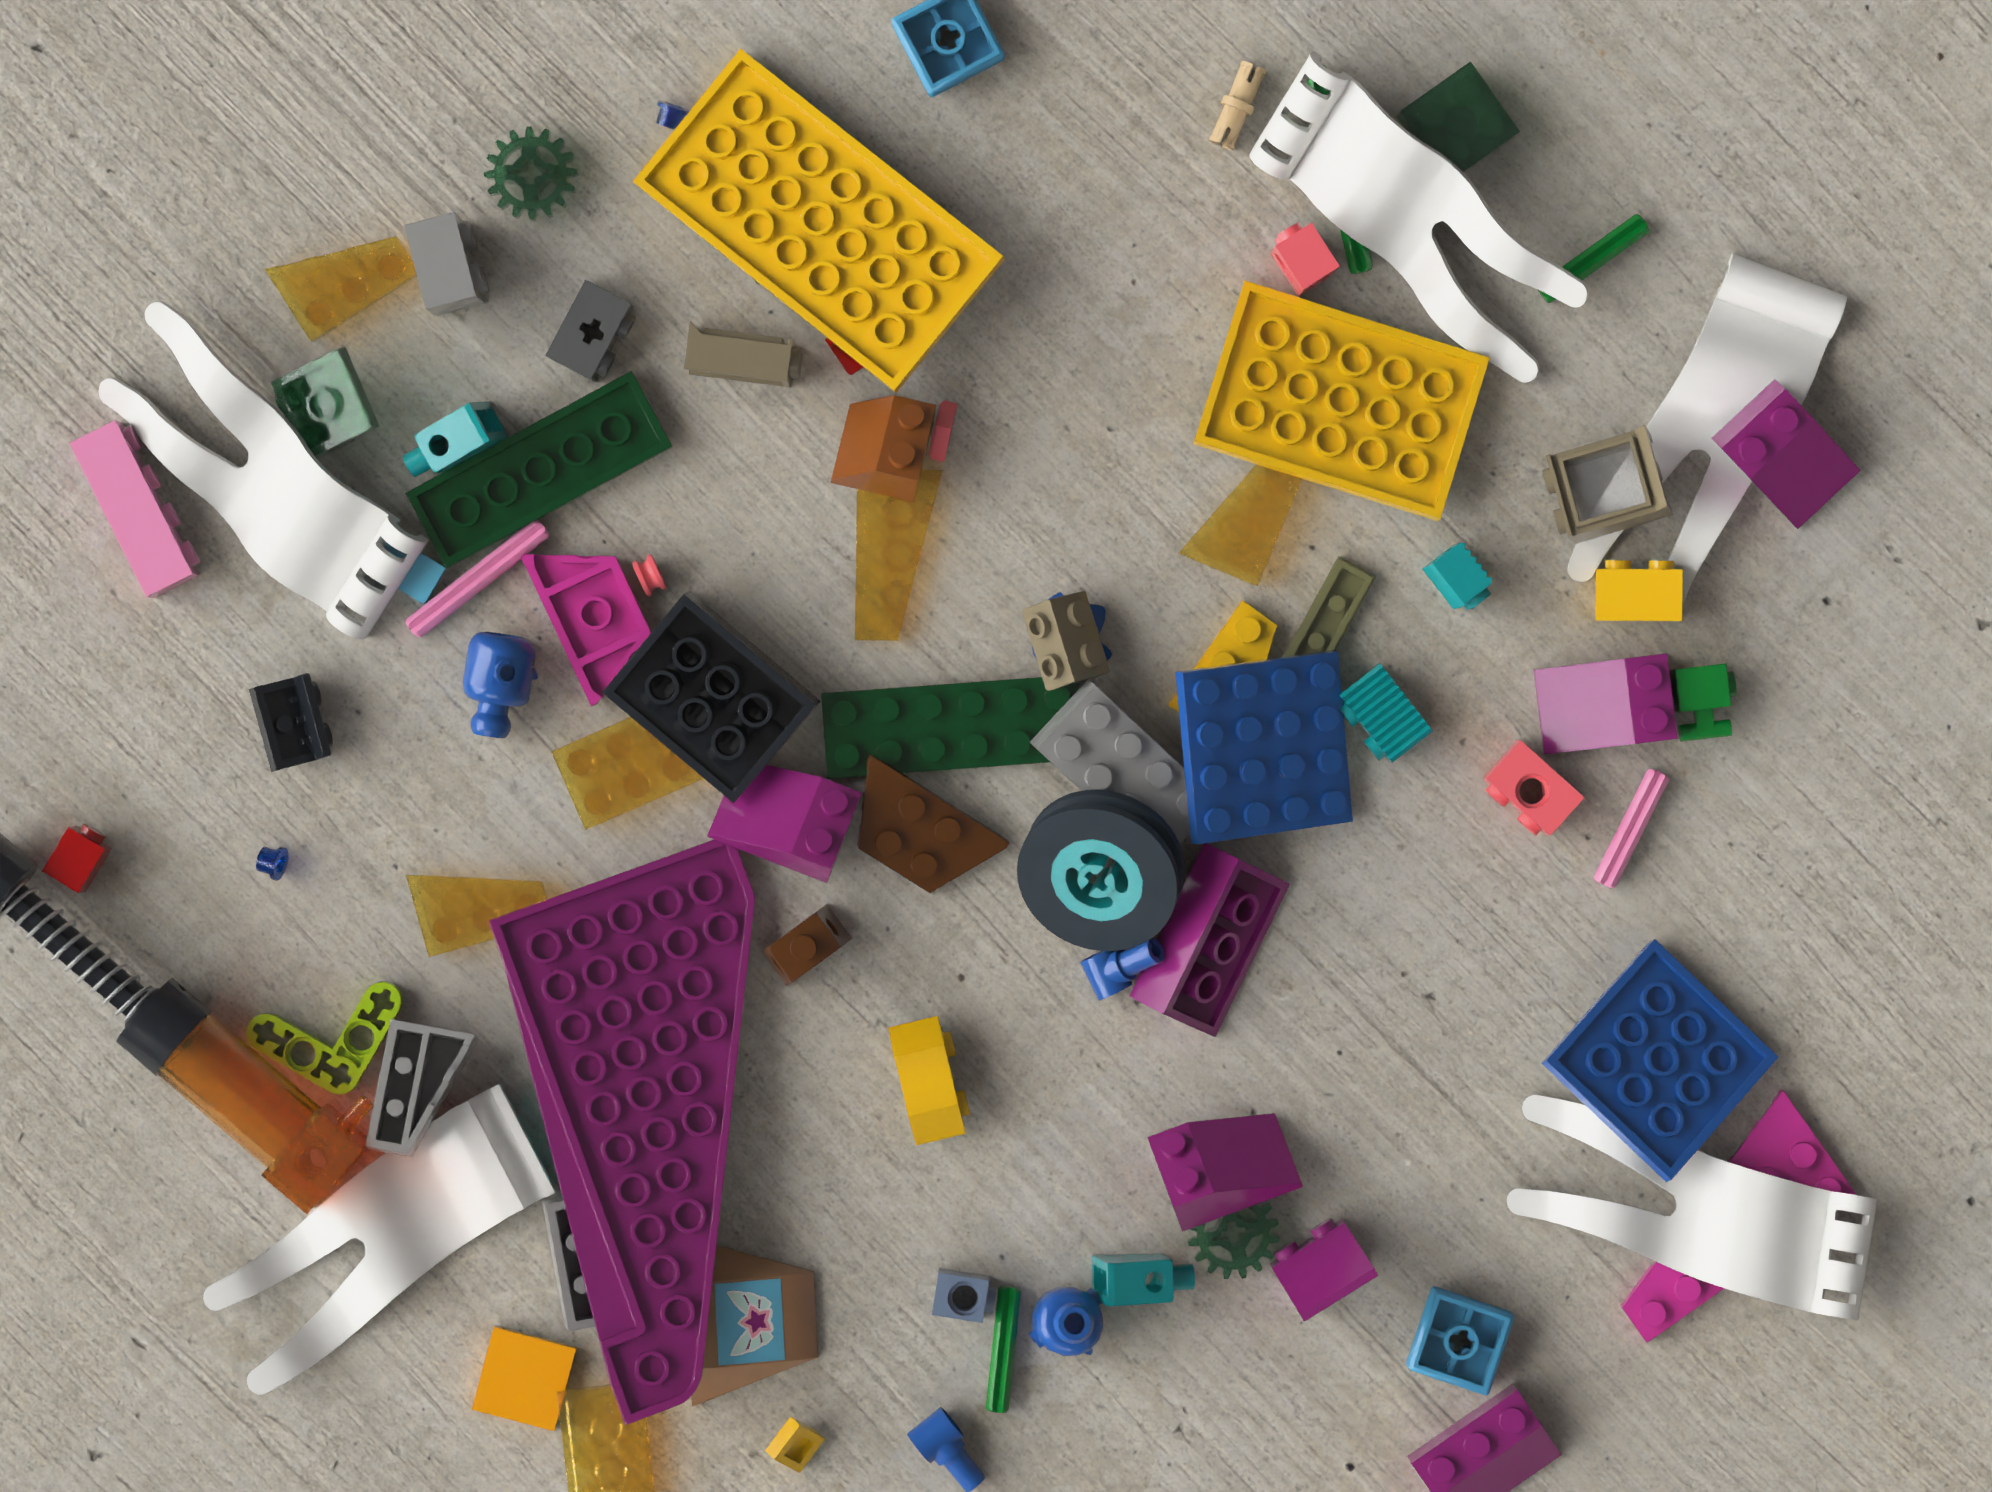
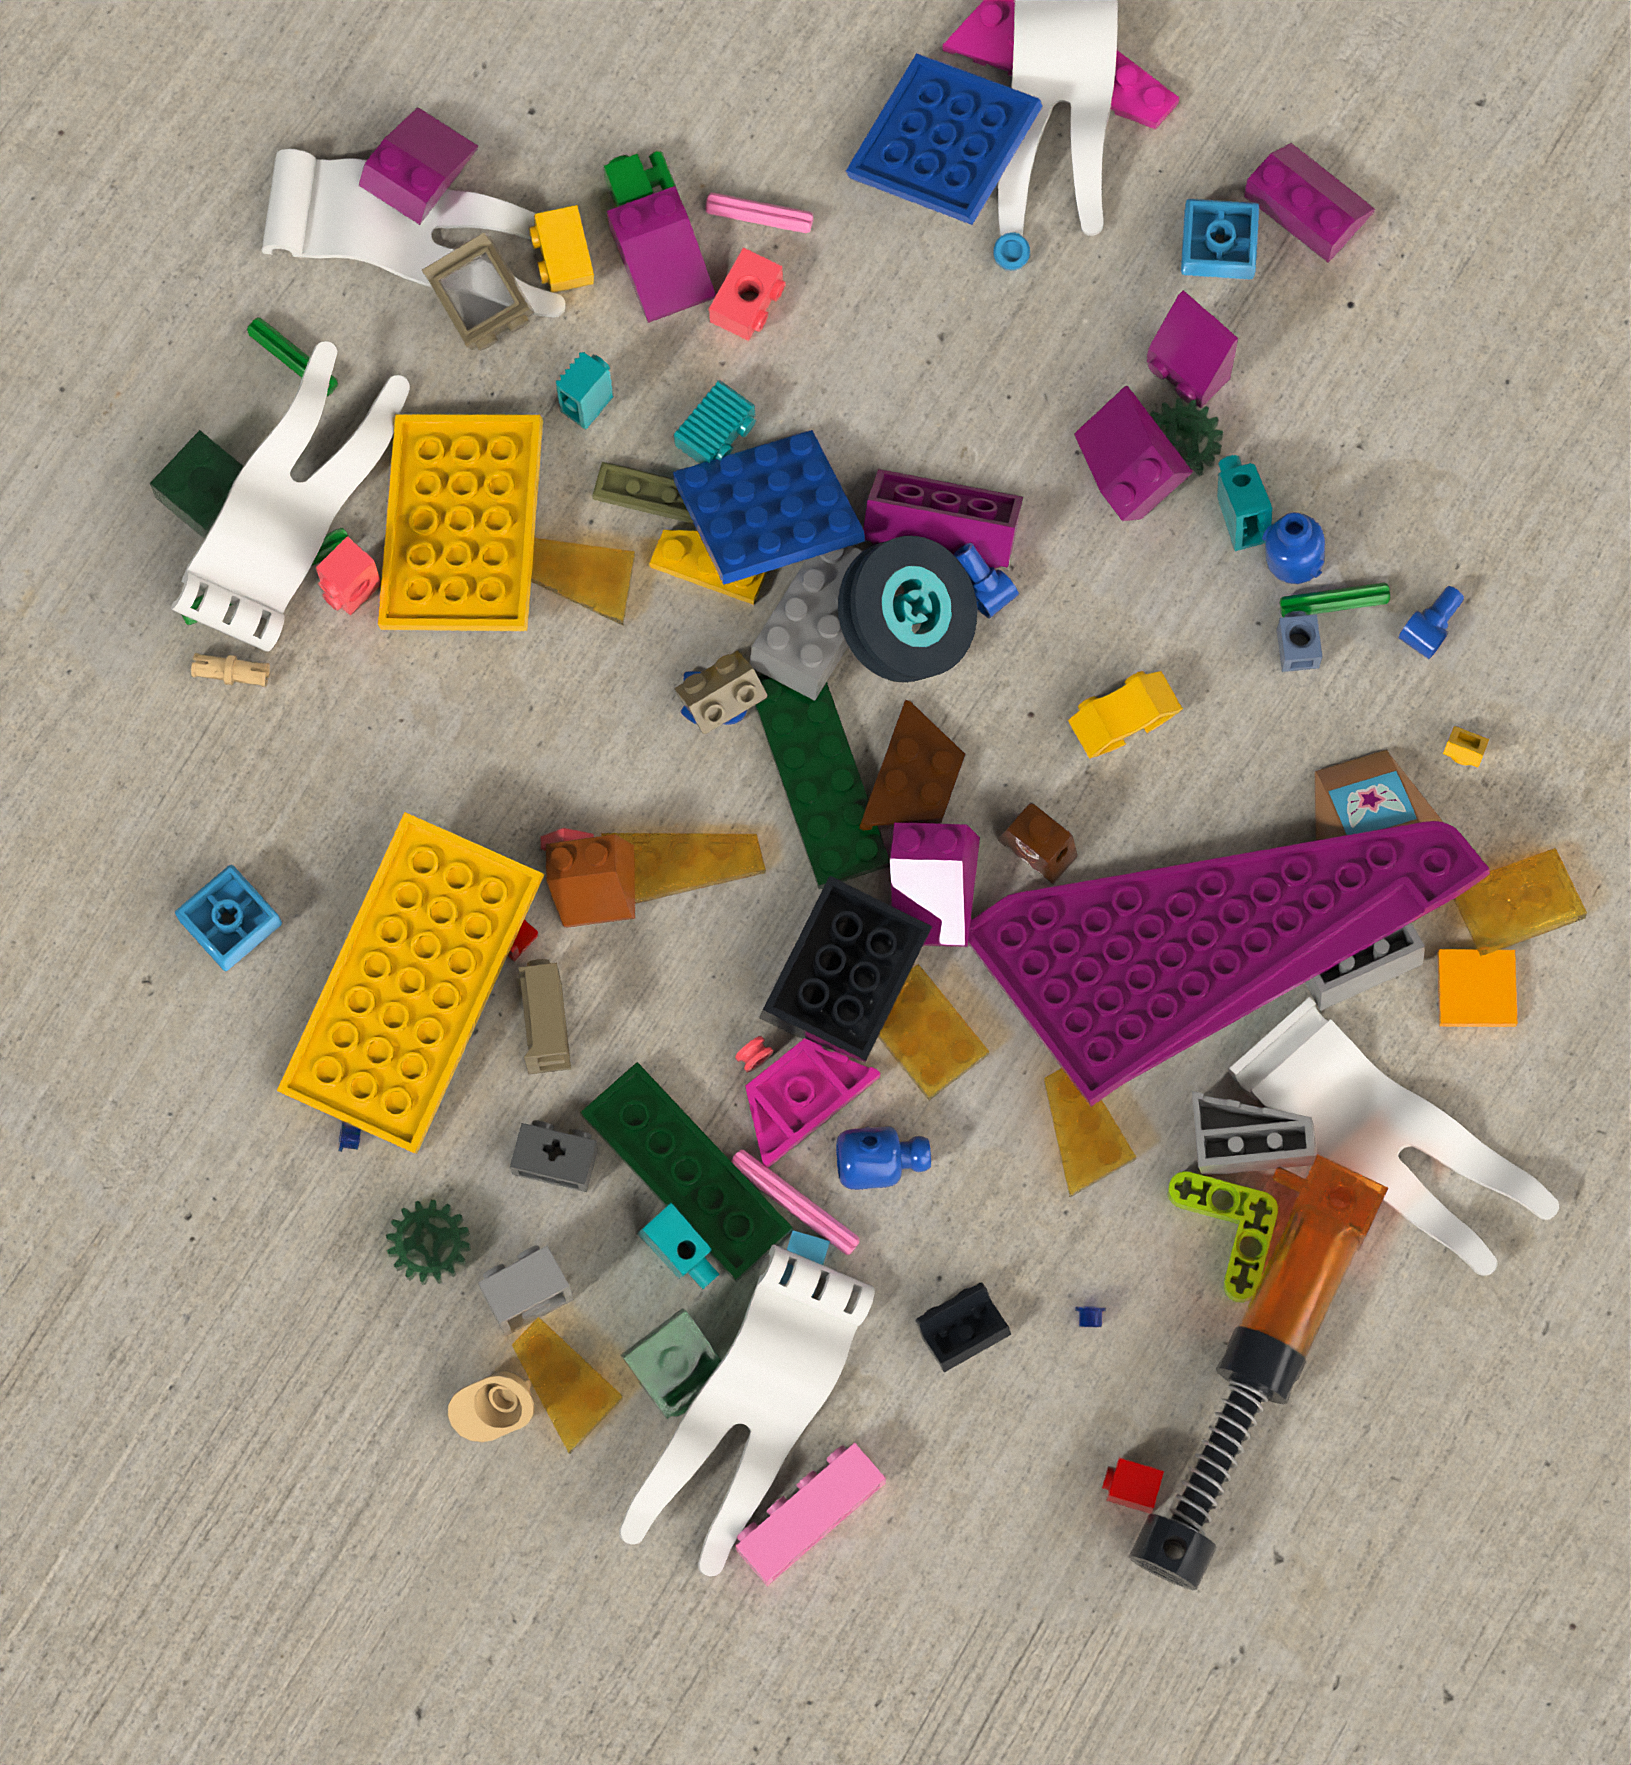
camera: 105 degrees left, 15 degrees down
(332, 201) = (491, 1407): none -> tan piece
(1509, 1101) = (1011, 251): none -> dark azure tile

